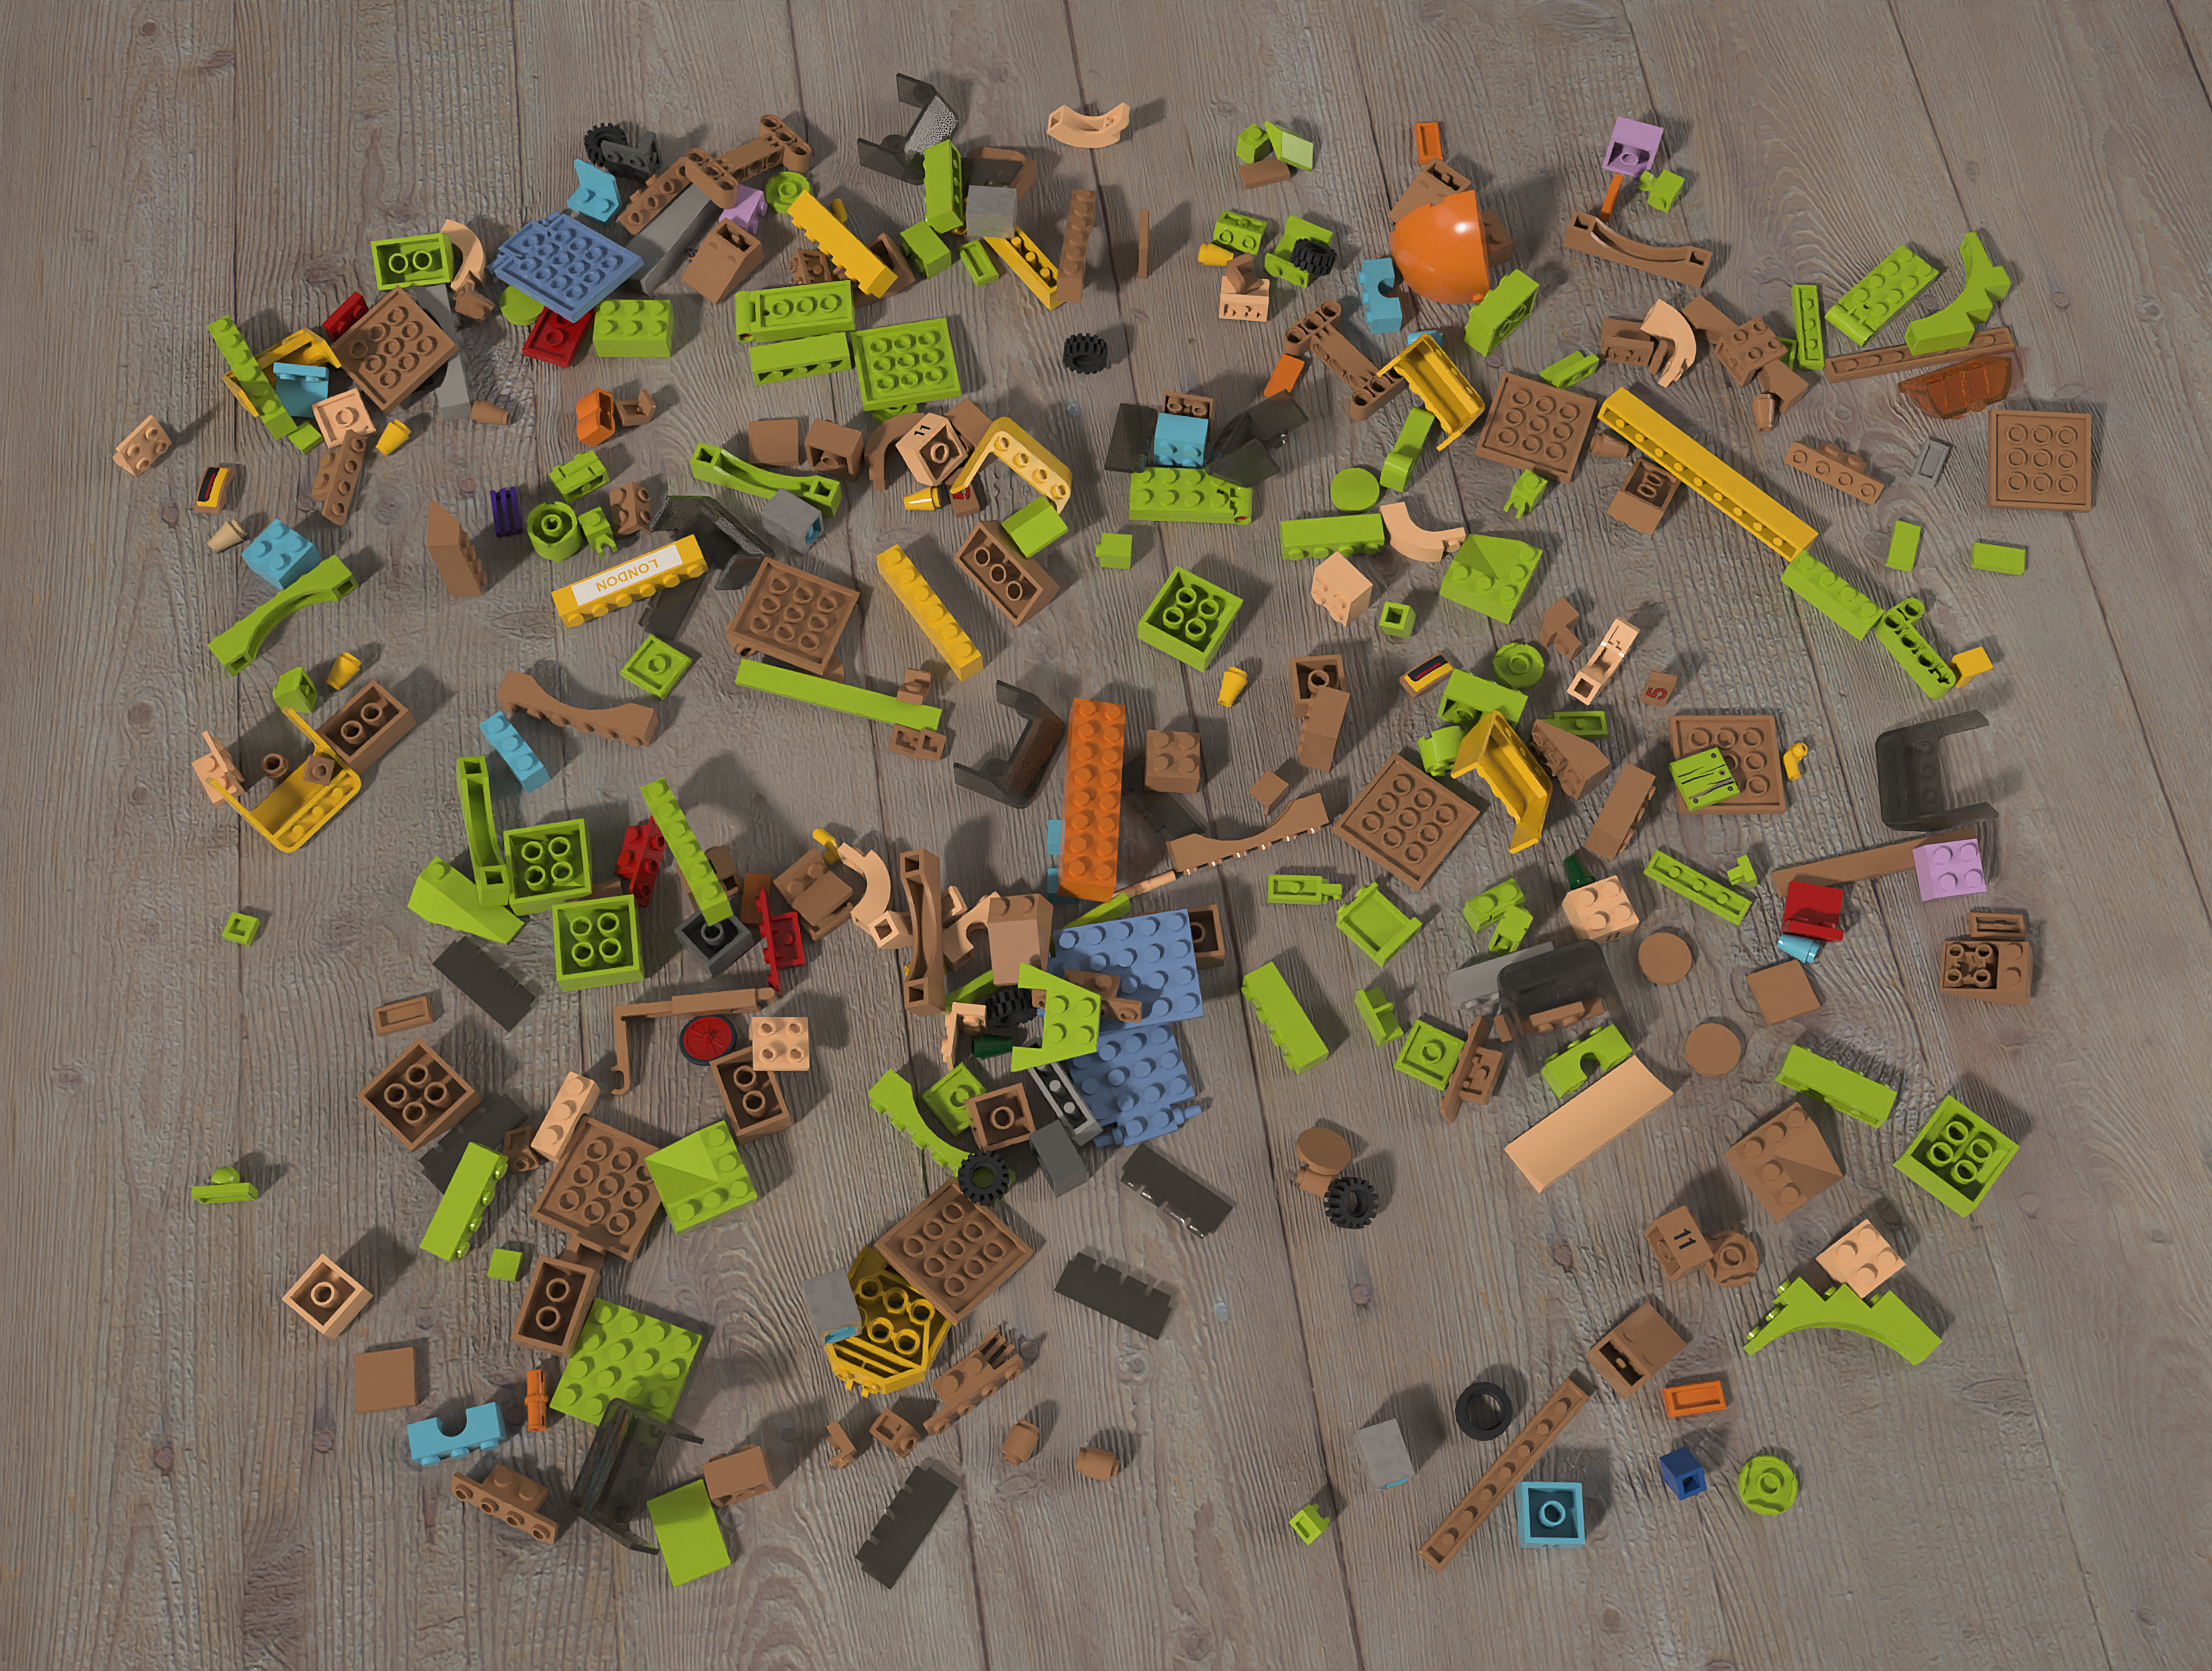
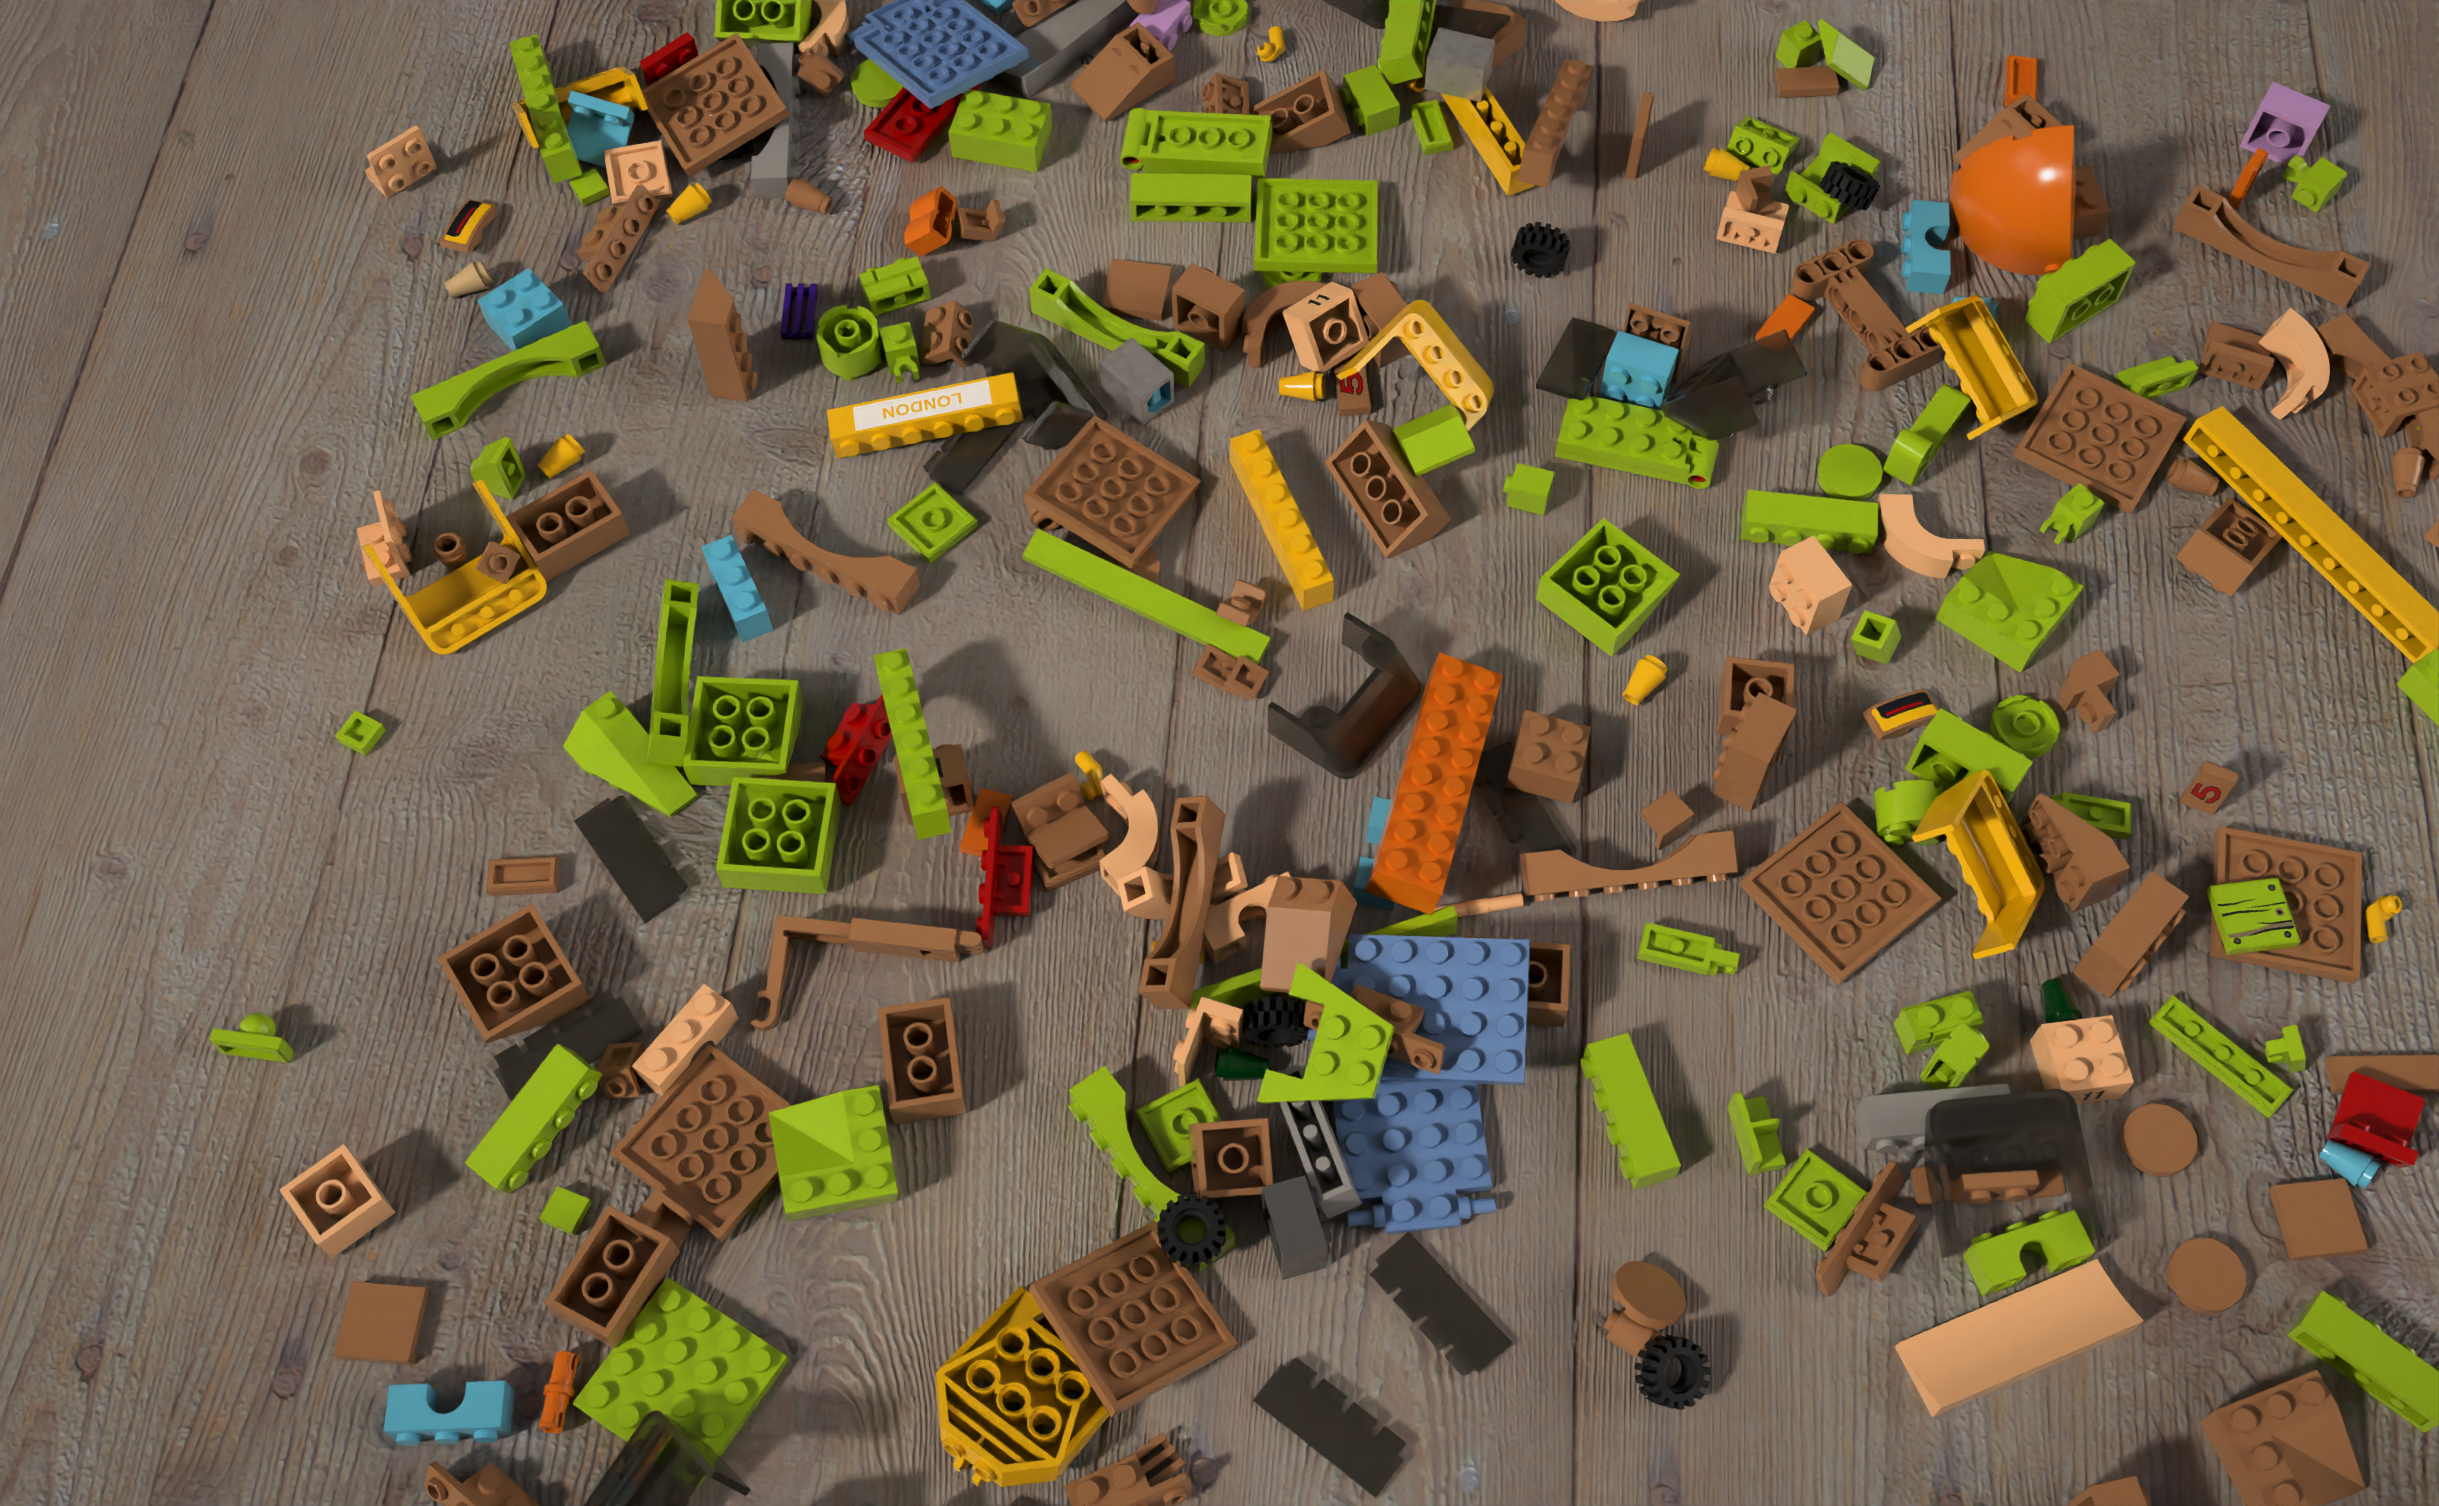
camera: 15 degrees right, 5 degrees down
(707, 1039) = (885, 981): red wheel -> none
(716, 944) = (924, 865): dark grey brick -> none
(780, 1043) = (972, 1004): light nougat bracket -> none
(831, 1307) = (956, 1354): flat silver piece -> none
(842, 244) = (1270, 75): yellow brick -> none
(1376, 924) = (1776, 1016): lime panel -> none
(1604, 662) = (2143, 740): light nougat arch -> none
(1658, 357) = (2276, 381): medium nougat tile -> none

